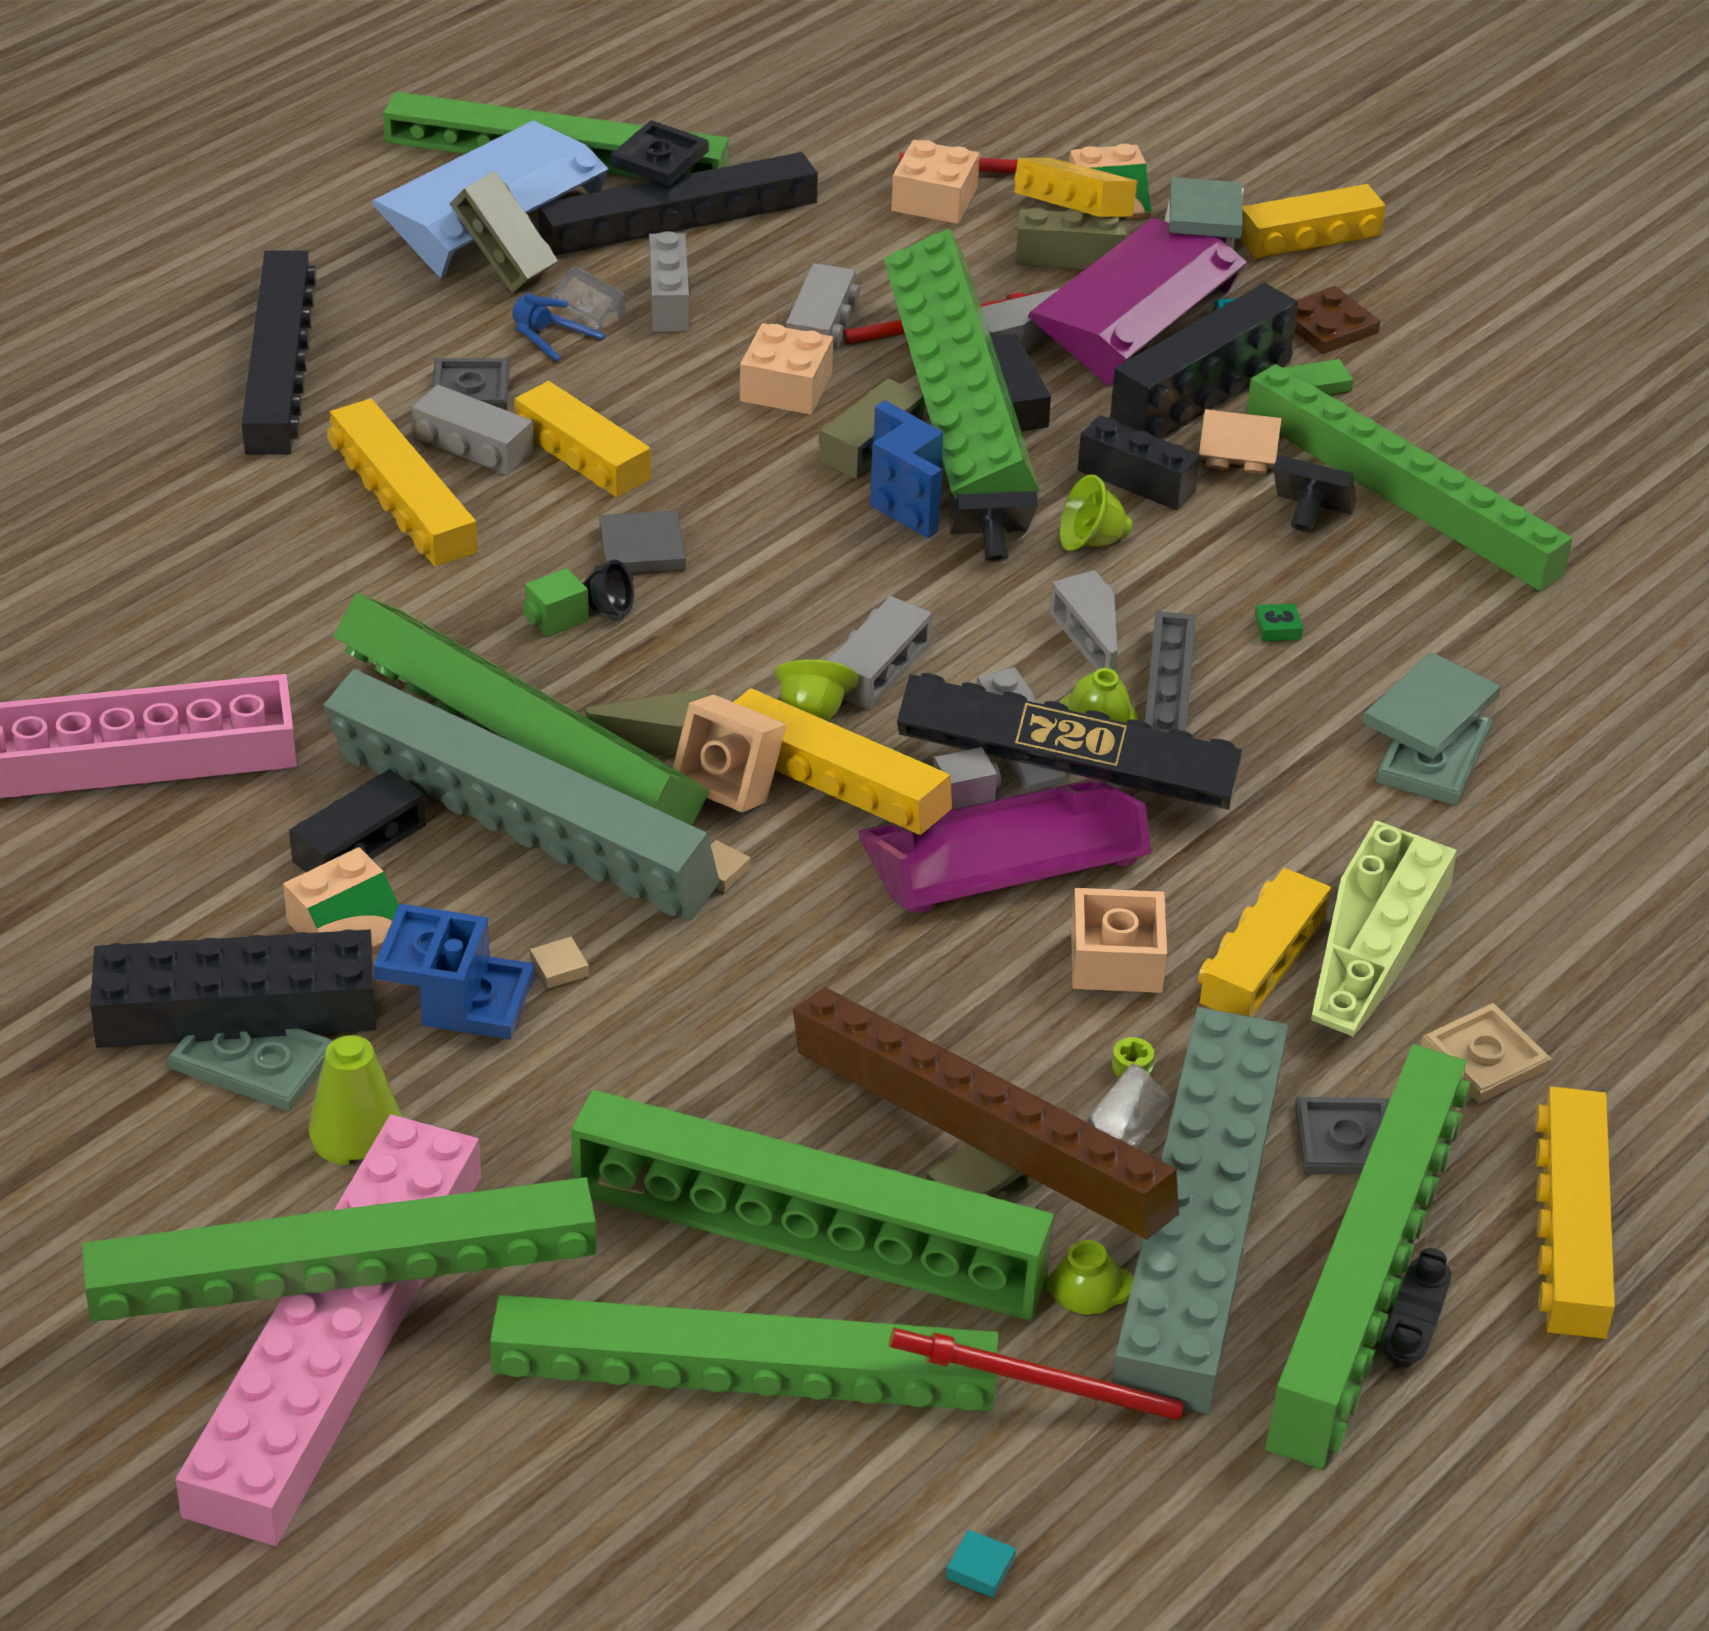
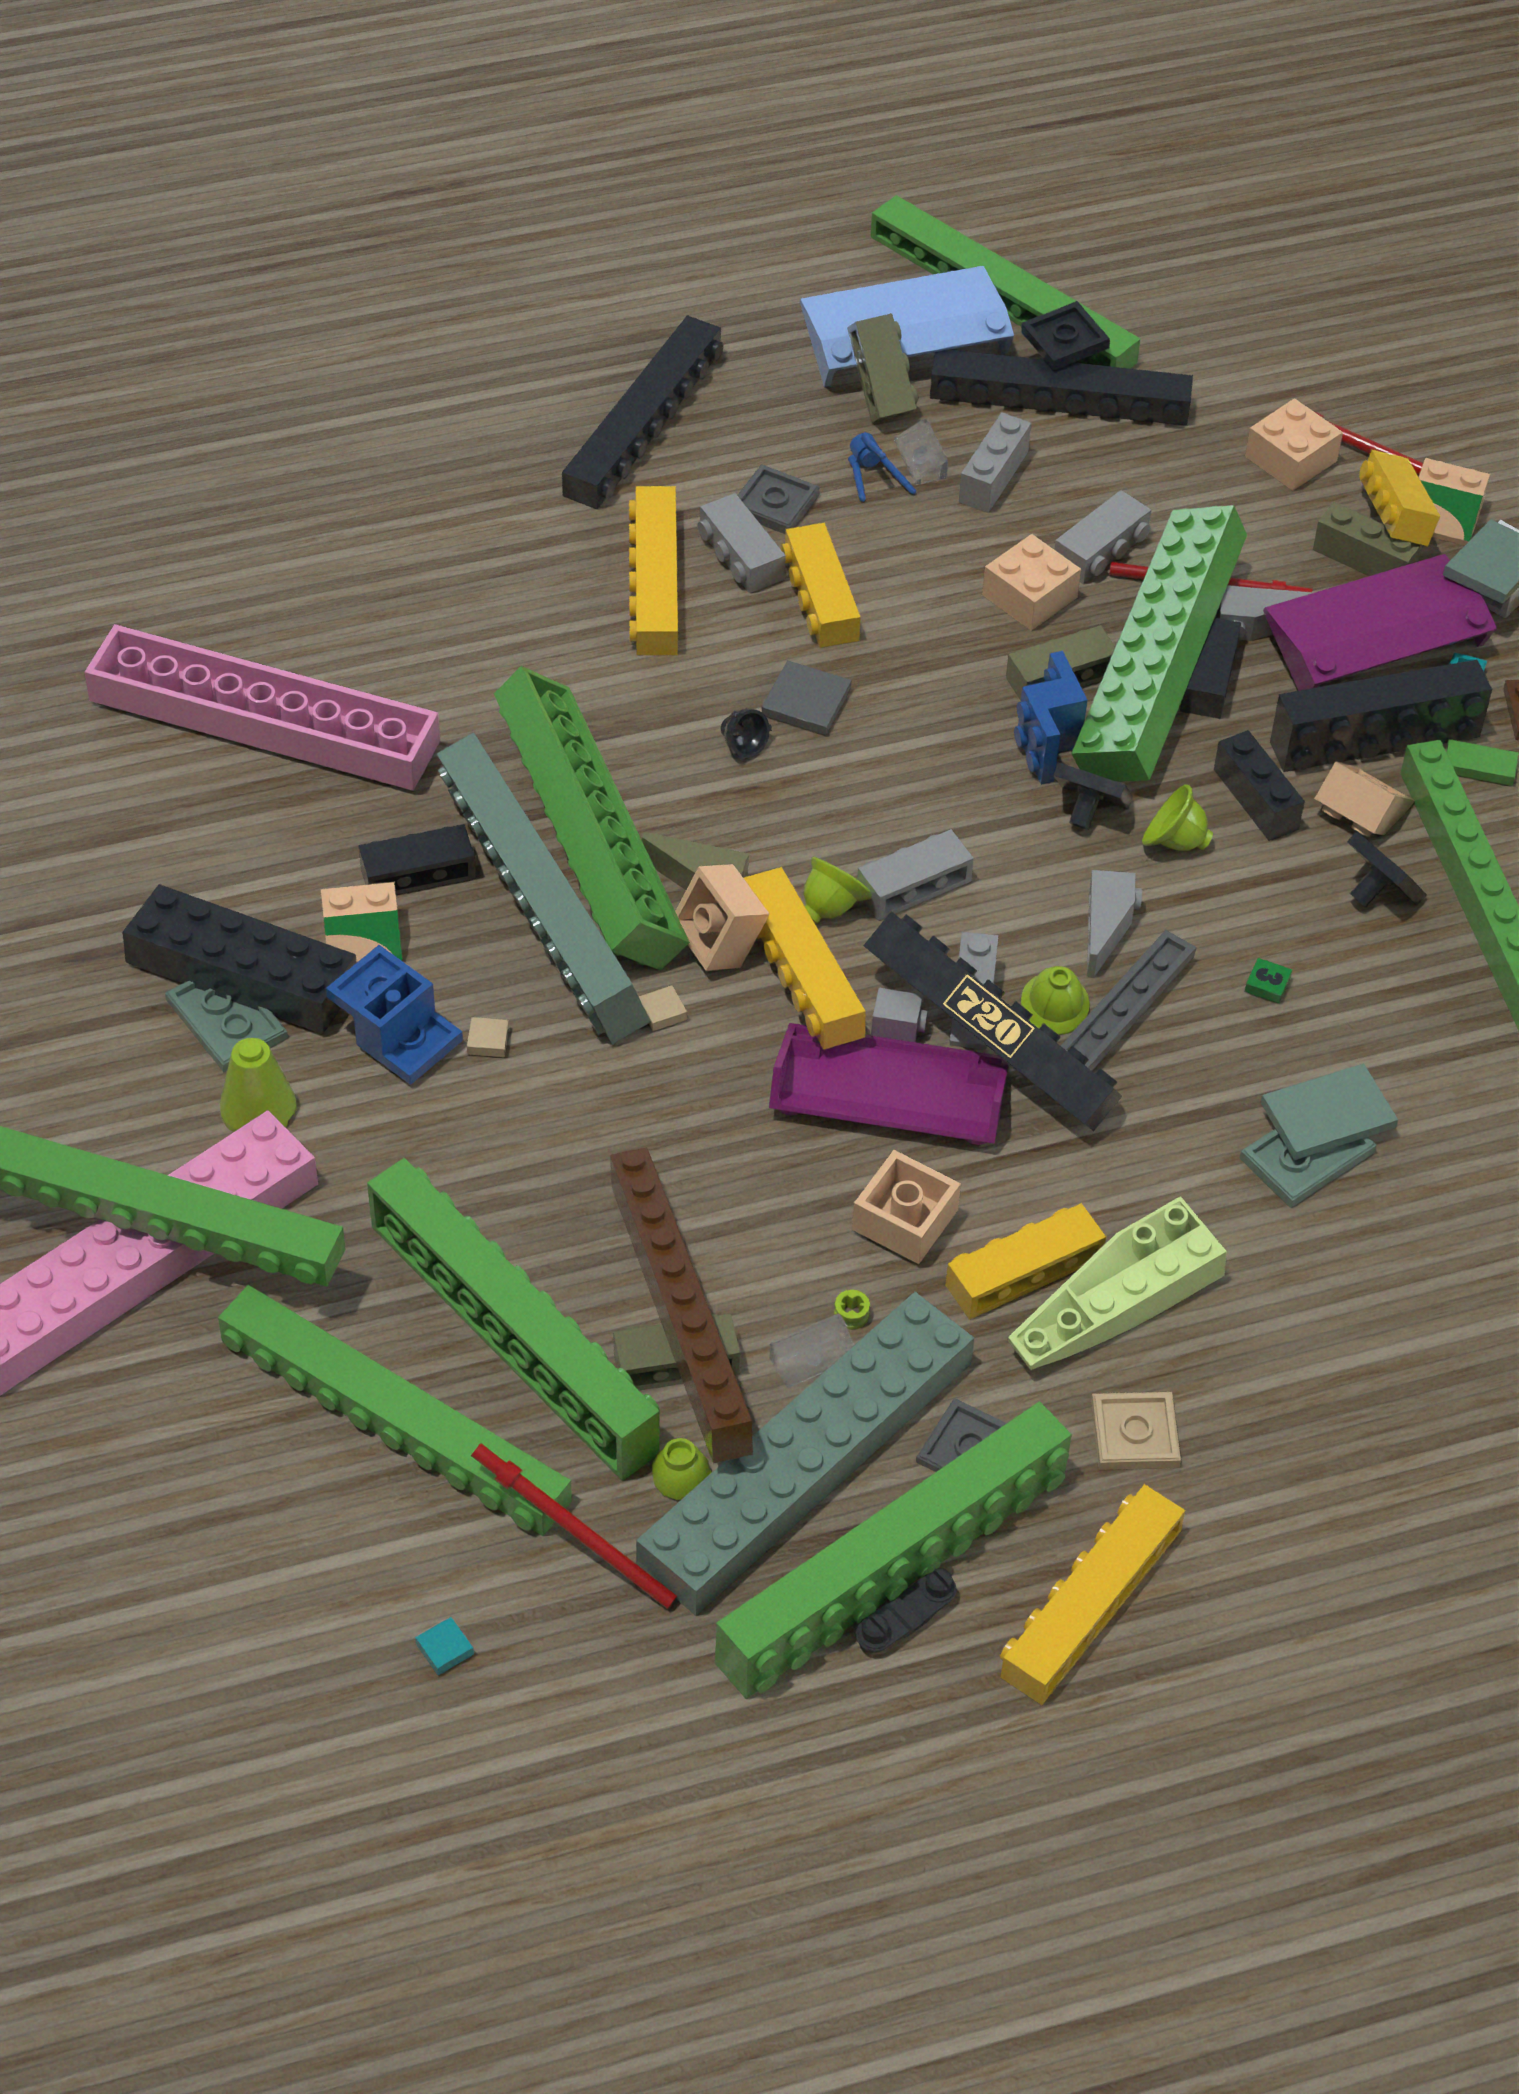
camera: 30 degrees right, 10 degrees up
(556, 602) = (695, 727): bright green brick -> none

